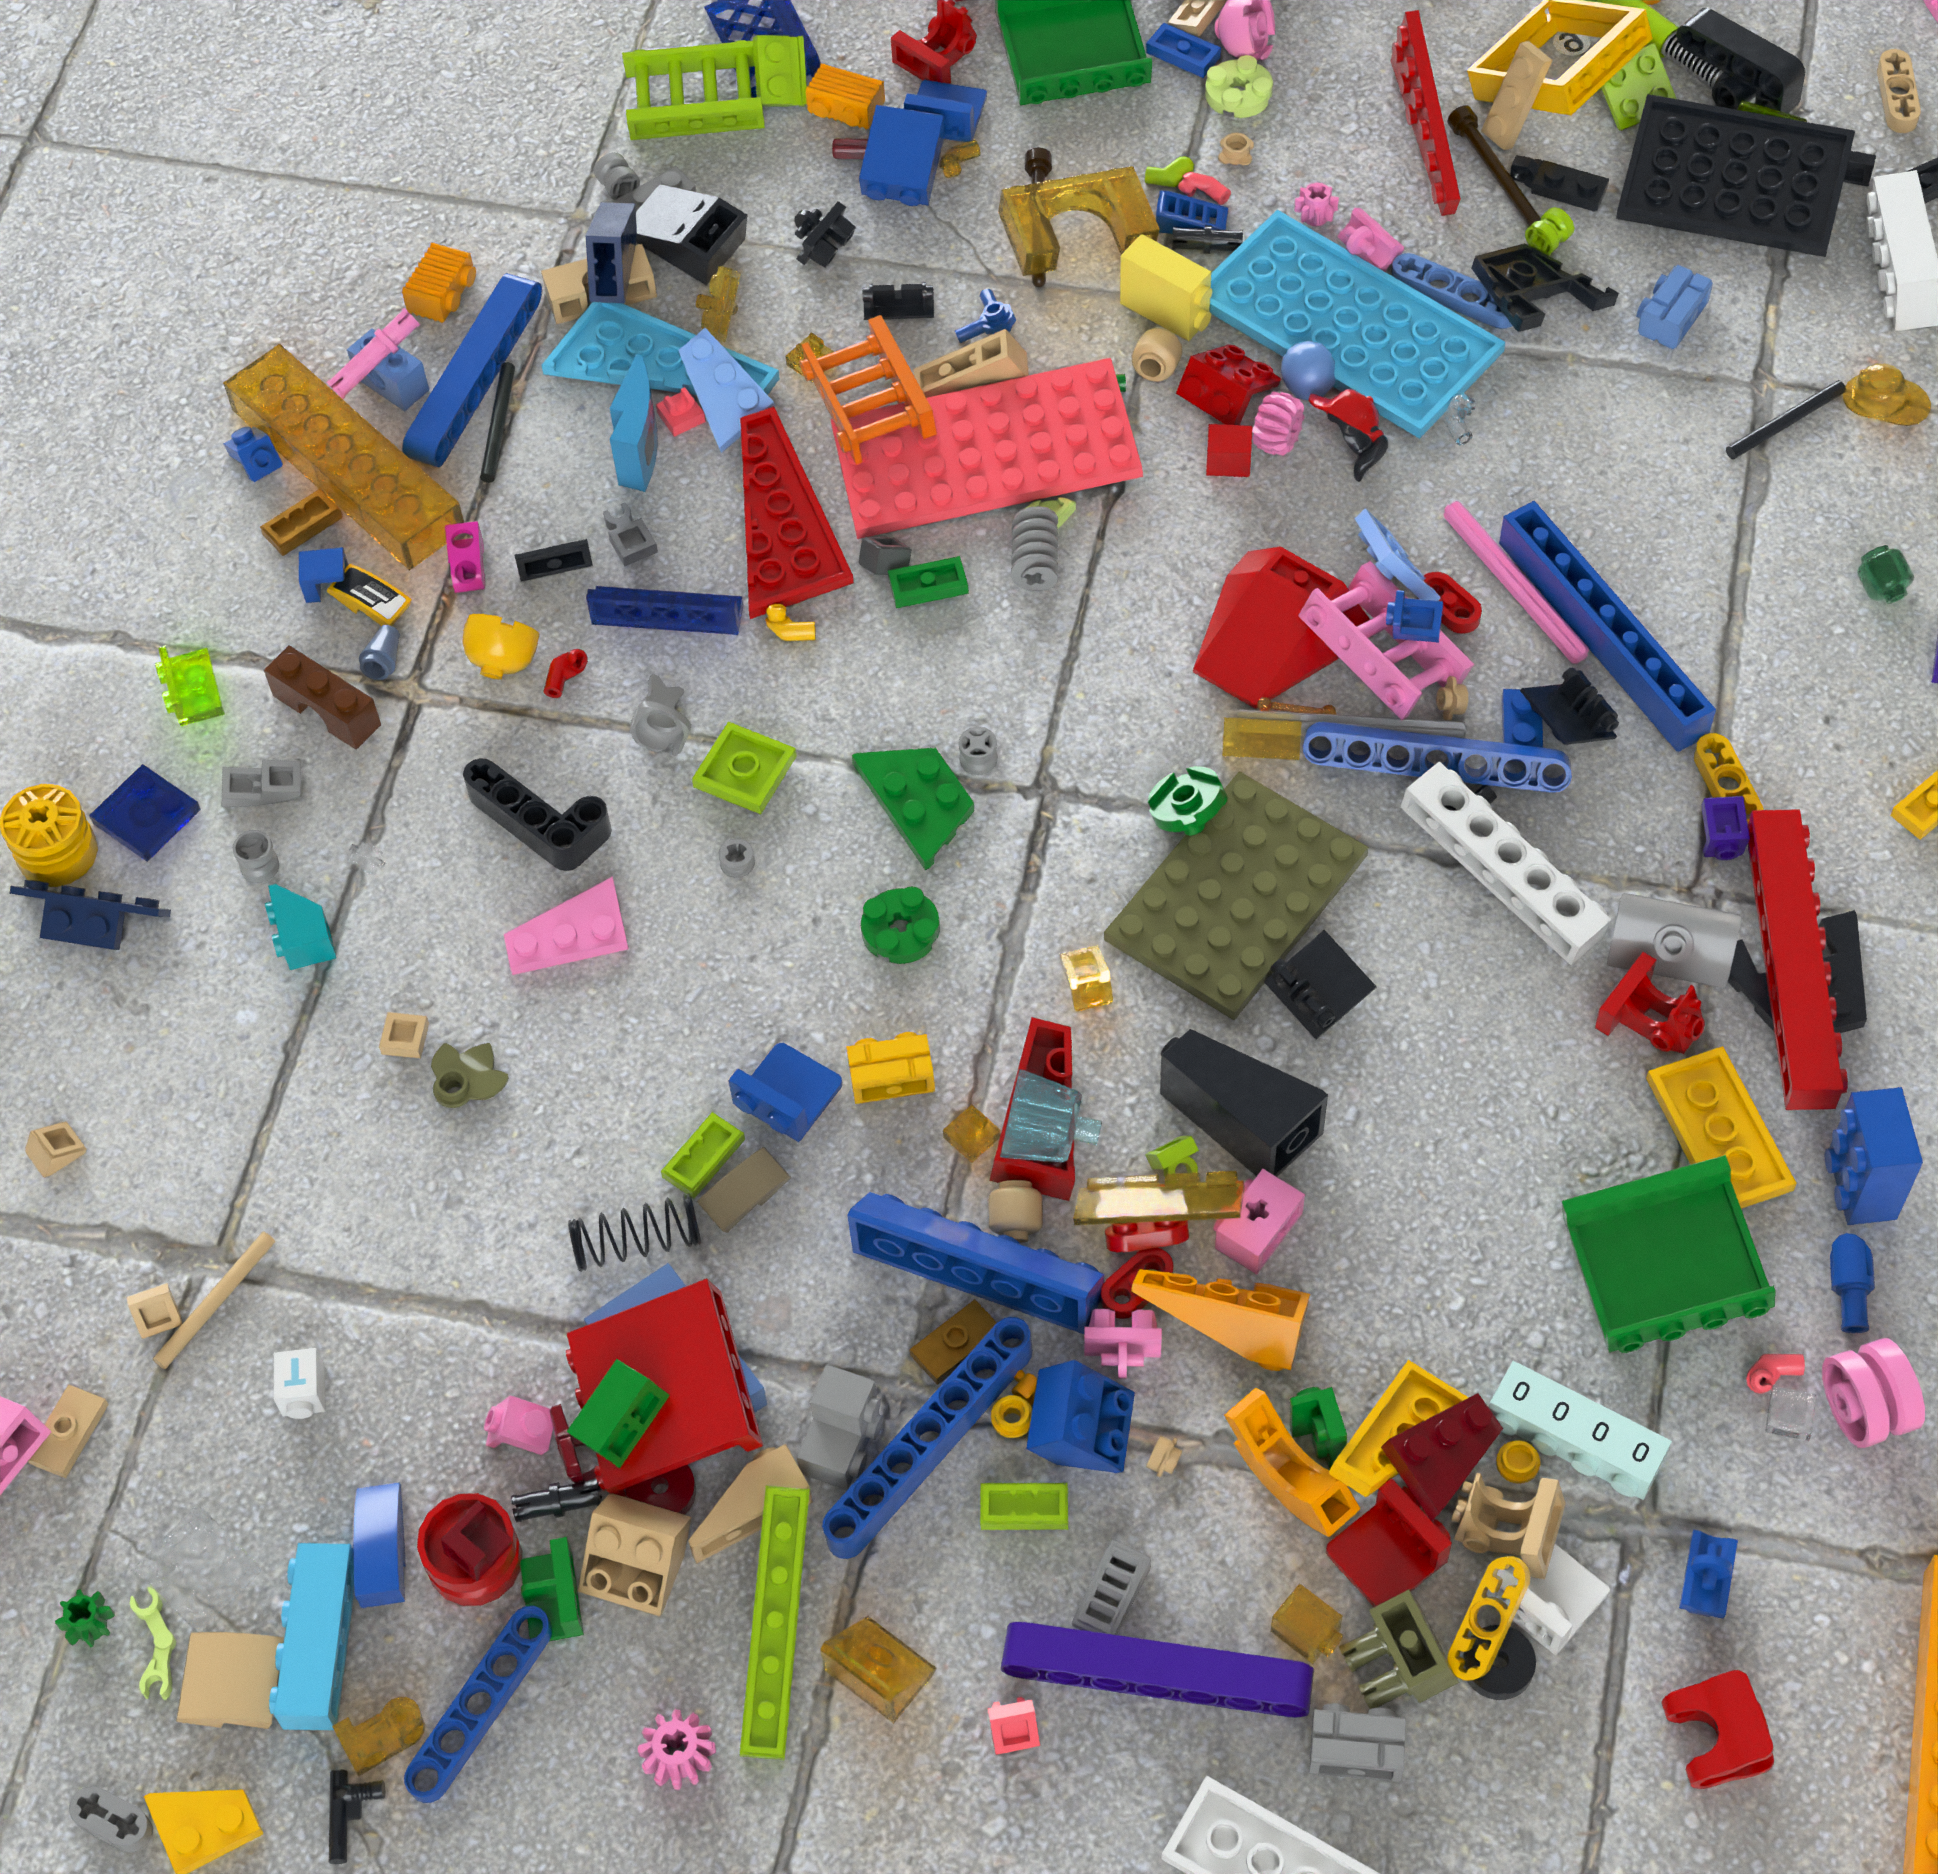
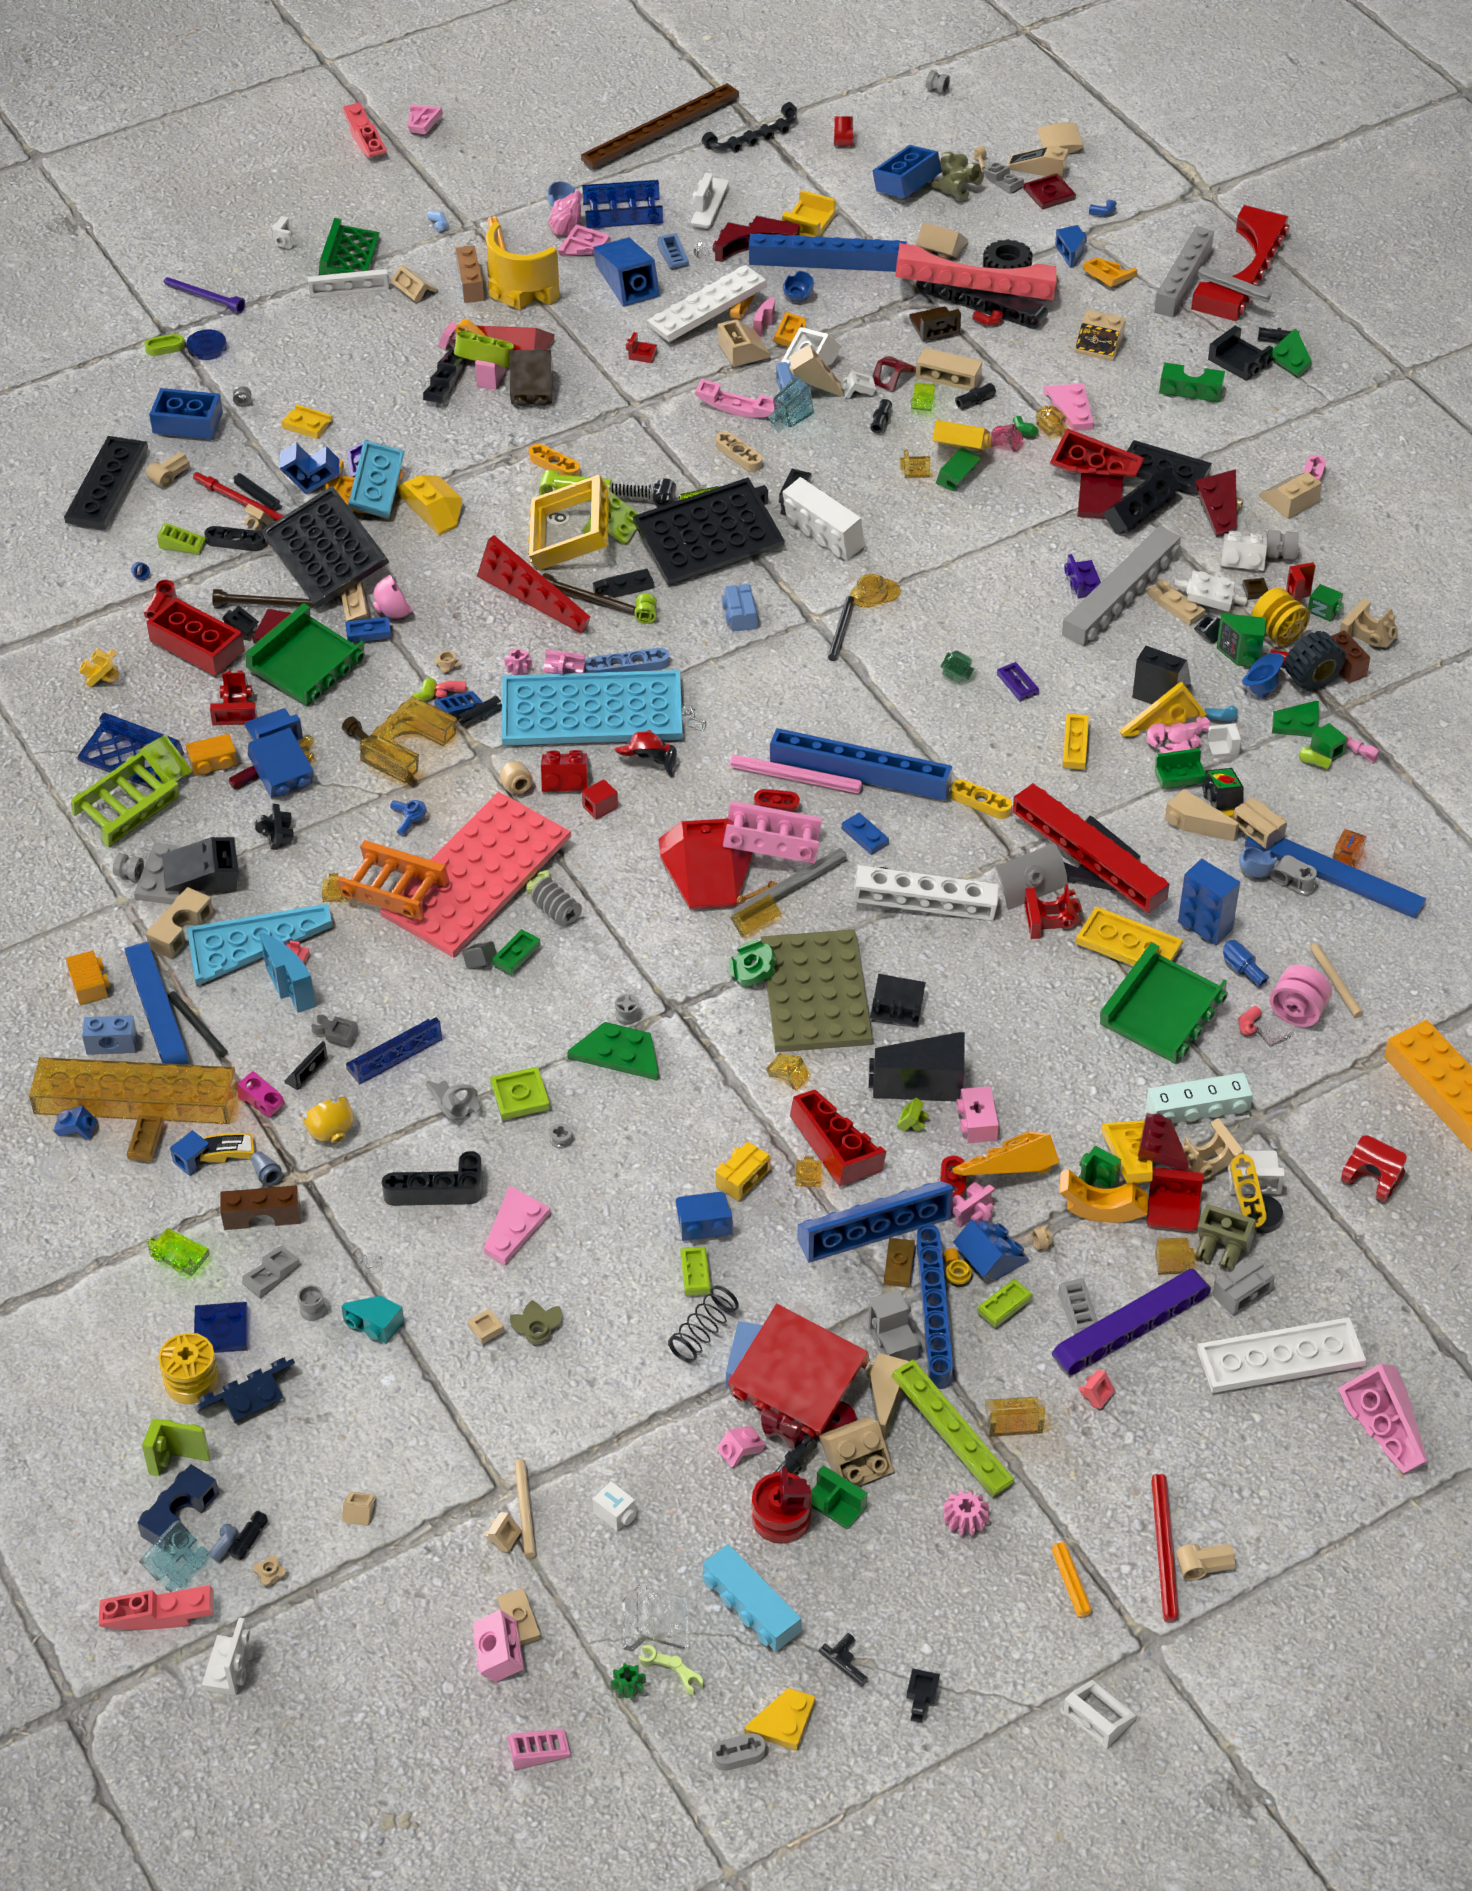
camera: 45 degrees left, 10 degrees down
(228, 1679) = (727, 1651): tan slope -> none
(373, 353) = (108, 1016): bright pink pin -> none
(379, 1545) = (720, 1531): blue slope -> none
(381, 1735) = (824, 1624): clear yellow leg -> none
(476, 1726) = (860, 1579): blue beam -> none
(562, 669) = (372, 1111): red arm -> none
(611, 251) = (183, 896): dark blue slope -> none
(618, 1413) = (796, 1390): green hinge -> none
(721, 387) = (315, 929): light blue wing -> none
(722, 303) = (264, 893): clear yellow plate -> none
(743, 1188) = (732, 1269): dark tan slope -> none
(786, 531) = (421, 976): red wing -> none
(786, 628) = (470, 1019): yellow arm -> none
(904, 905) = (674, 1098): green plate -> none
(908, 303) = (352, 835): black hinge -> none
(975, 365) = (433, 835): tan slope -> none
(1015, 1210) = (867, 1186): tan head -> none
(1045, 1121) = (850, 1131): clear light blue torso -> none
(1145, 1235) = (938, 1152): red plate -> none
(1147, 1200) = (933, 1131): clear yellow windscreen -> none
(1165, 287) = (491, 742): light yellow brick -> none
(1239, 72) = (415, 622): yellowish green plate -> none
(1278, 423) = (613, 770): bright pink gear -> none
(1308, 369) = (599, 739): medium blue hair -> none
(1391, 557) = (734, 793): light blue wing -> none
(1415, 618) = (781, 811): blue bracket -> none
(1452, 698) = (826, 841): tan plate -> none
(1455, 748) = (836, 873): blue beam -> none
(1516, 95) = (571, 552): tan plate -> none
(1518, 1462) = (1189, 1129): yellow plate -> none
(1525, 275) = (661, 636): black wing -> none
(1573, 709) = (890, 815): black hinge -> none
(1708, 1575) = (1309, 1114): blue hips -> none
(1725, 827) = (1003, 815): dark purple bracket -> none
(1745, 56) = (659, 473): black beam -> none

